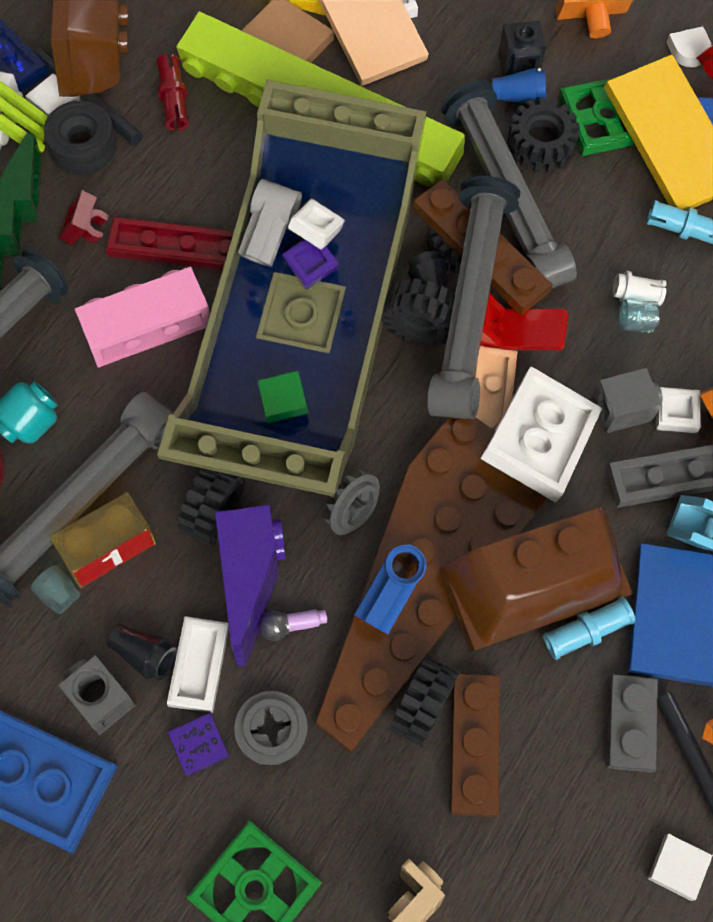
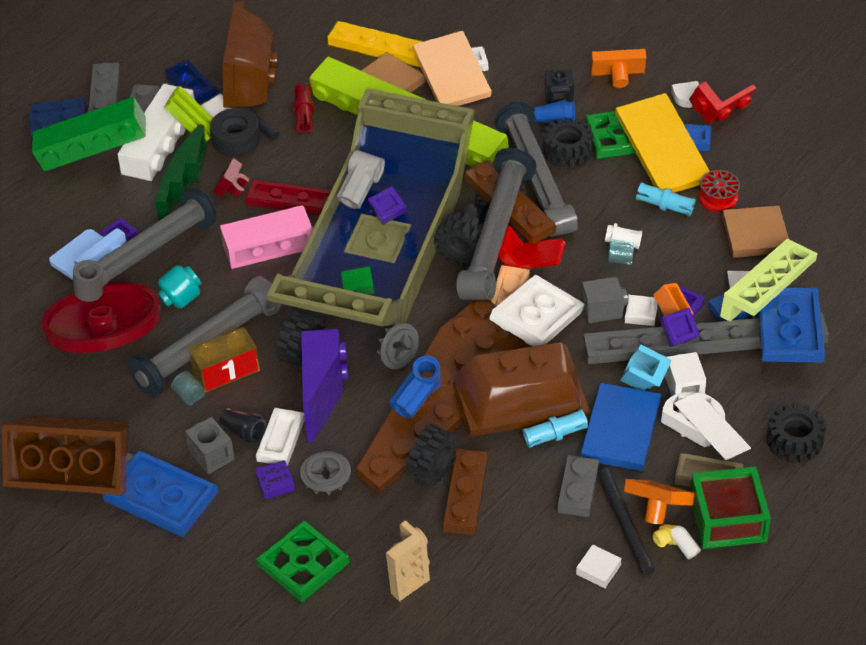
camera: 10 degrees right, 20 degrees down
(276, 624) = (337, 416): piece -> none
(316, 224) = (393, 180): white tile -> none

